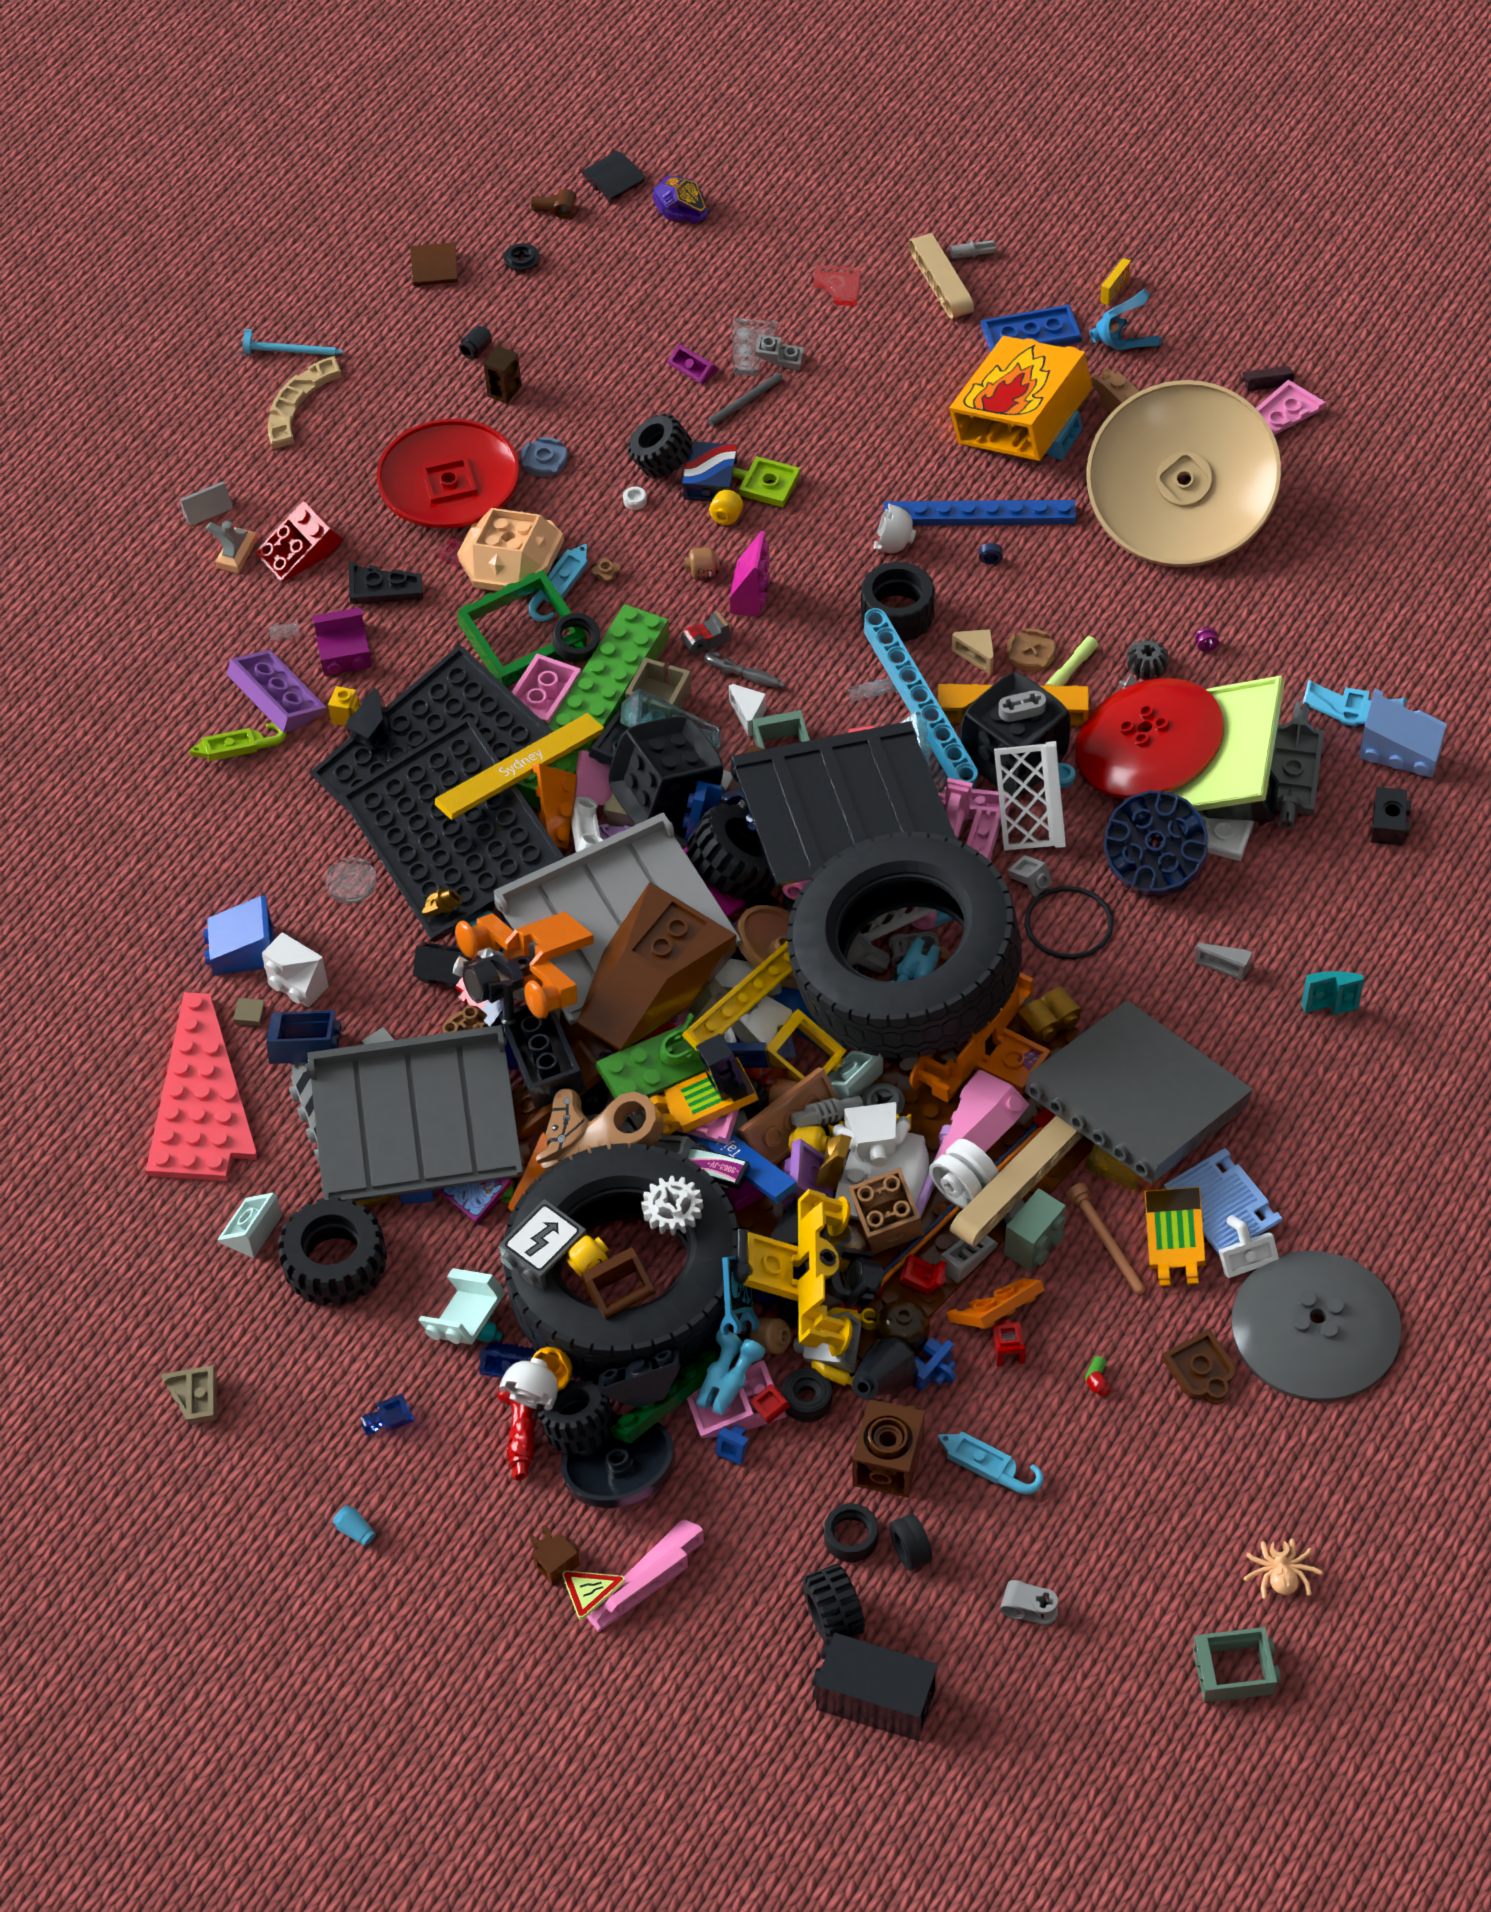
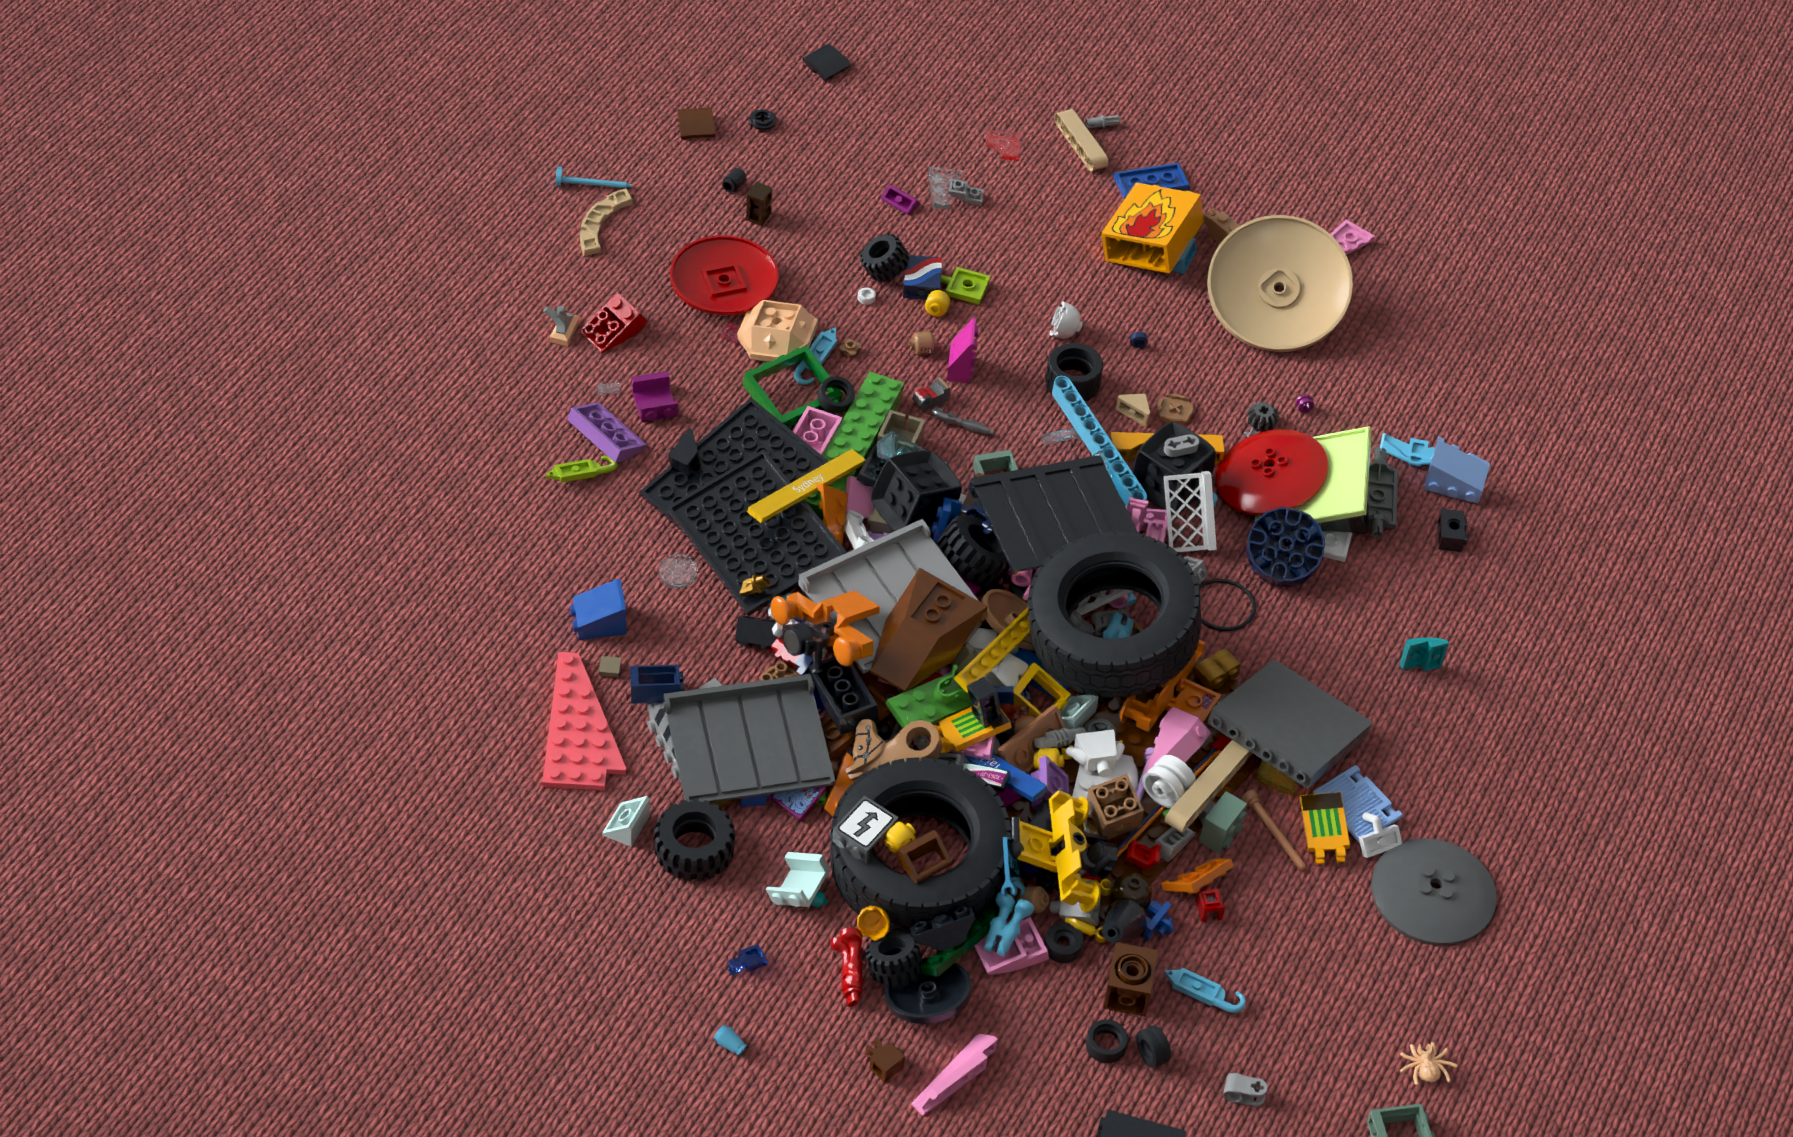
camera: 10 degrees left, 5 degrees down
(194, 1392) = (596, 944): dark tan wing -> none
(206, 503) = (538, 294): light grey slope -> none
(295, 970) = (645, 635): white slope -> none
(342, 705) = (661, 444): yellow window -> none
(376, 585) = (677, 356): black wing -> none
(499, 1357) = (836, 919): clear blue brick -> none
(530, 1384) = (861, 933): white cylinder -> none
(544, 457) = (794, 265): sand blue tile -> none
(561, 204) = (789, 82): reddish brown pin -> none
(590, 1590) = (915, 1084): piece -> none
(663, 1214) = (960, 800): white gear -> none
(678, 192) = (878, 74): dark purple helmet -> none
(732, 1444) = (1011, 978): blue tile -> none
(745, 399) = (943, 226): dark grey bar -> none
(747, 705) = (967, 446): white slope -> none
(769, 1403) = (1038, 948): red tile -> none
(833, 1162) = (1071, 771): pearl gold slope -> none
(833, 1603) = (1101, 1089): black tyre -> none
(989, 512) = (1135, 310): blue plate -> none
(1080, 655) = (1212, 413): yellowish green piece -> none
(1095, 1379) = (1276, 930): red arm -> none
(1109, 327) = (1210, 179): dark azure piece -> none
(1115, 281) = (1211, 146): yellow tile -> none
(1201, 1367) = (1353, 921): reddish brown plate -> none
(1224, 959) = (1344, 631): light grey slope -> none
(1267, 378) = (1330, 218): black slope -> none

